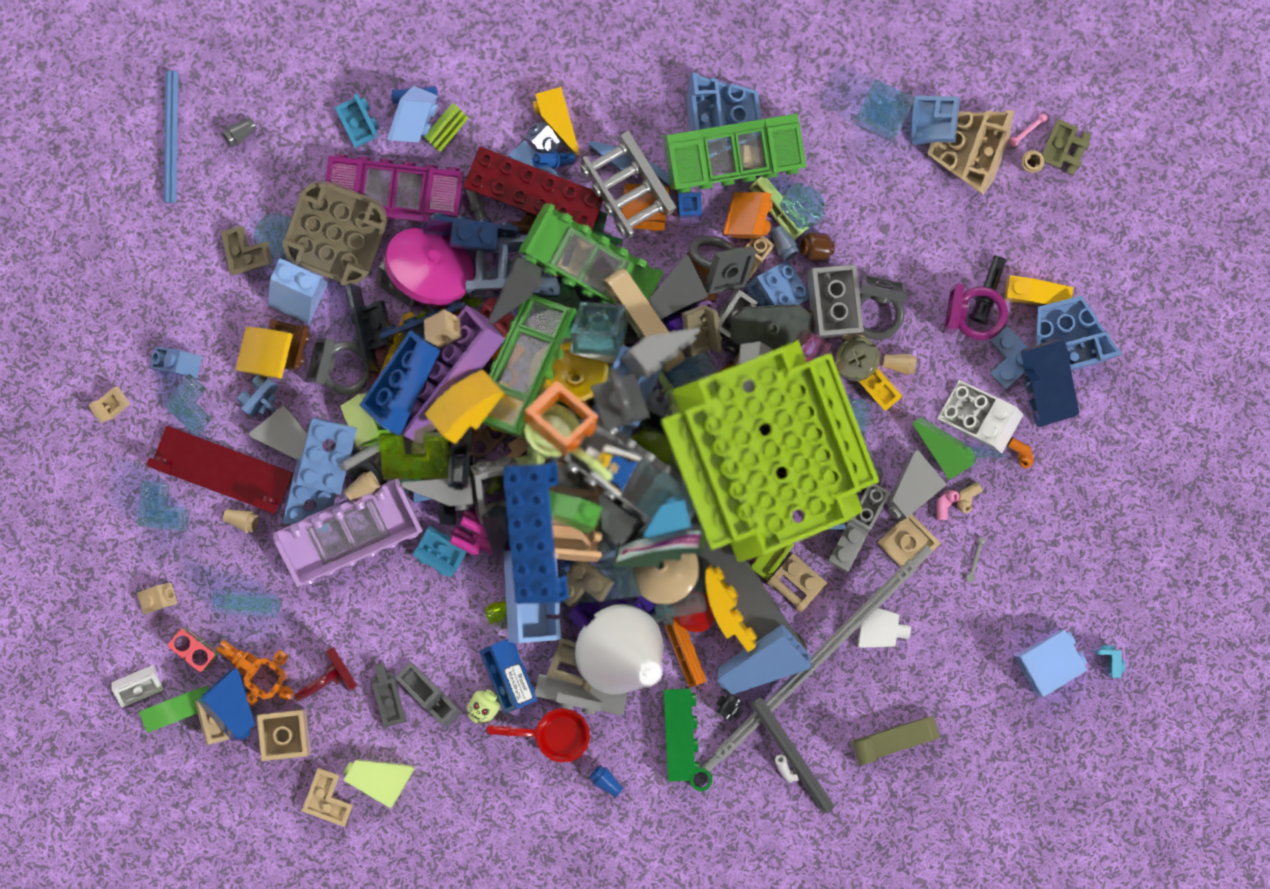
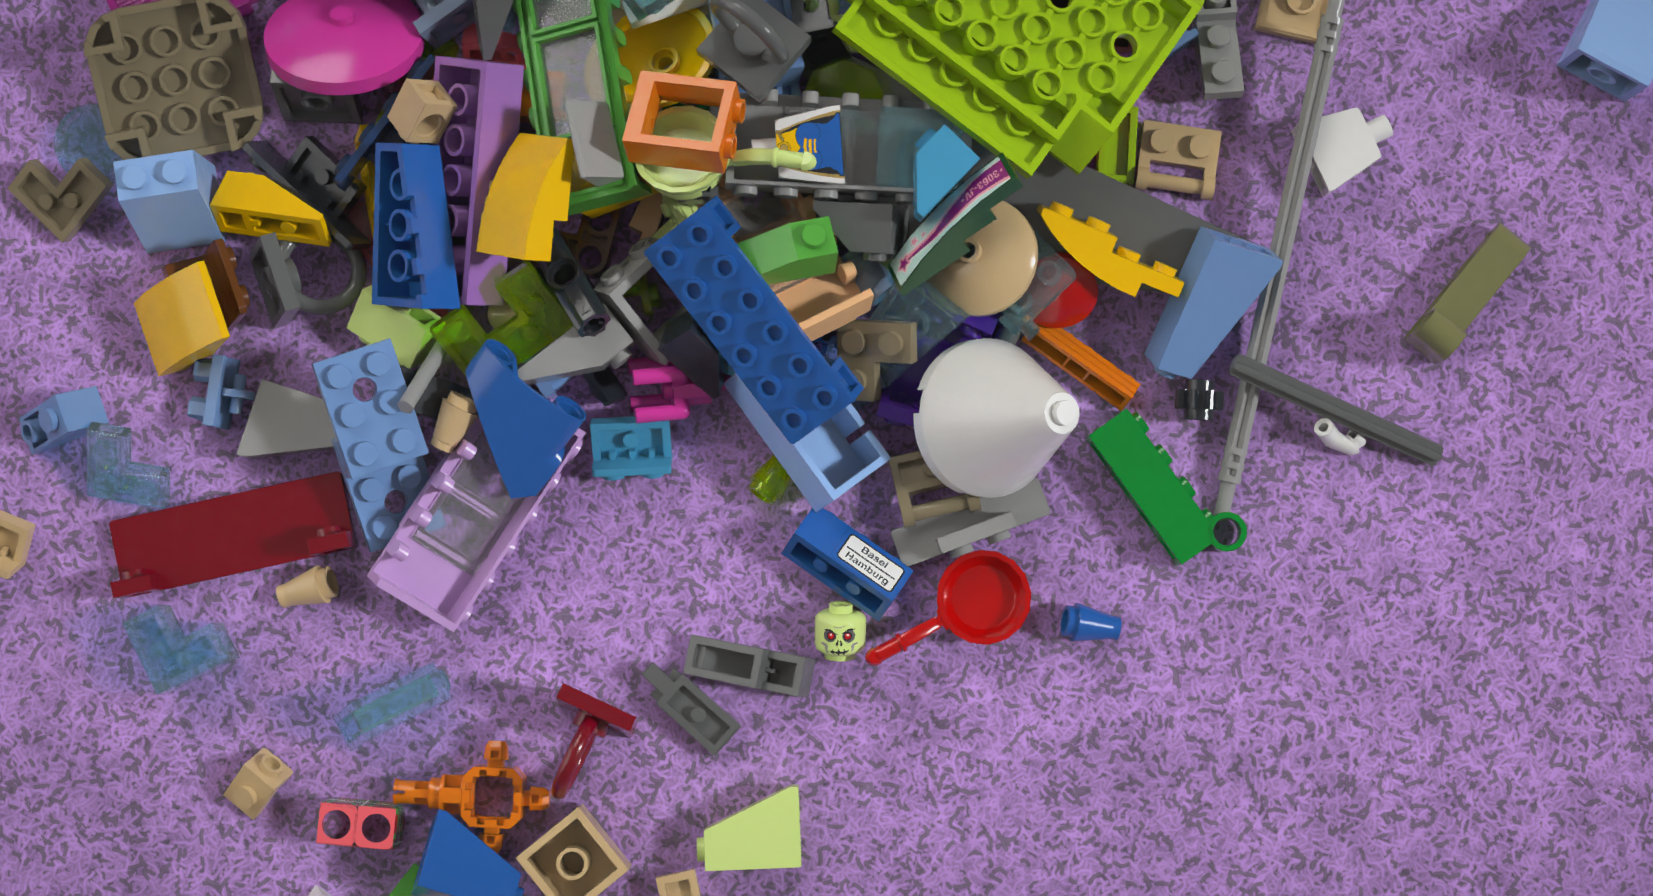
camera: 30 degrees left, 0 degrees up
(336, 321) = (259, 206): none -> yellow slope
(392, 510) = (519, 423): none -> blue panel
(513, 399) = (594, 141): none -> light grey slope

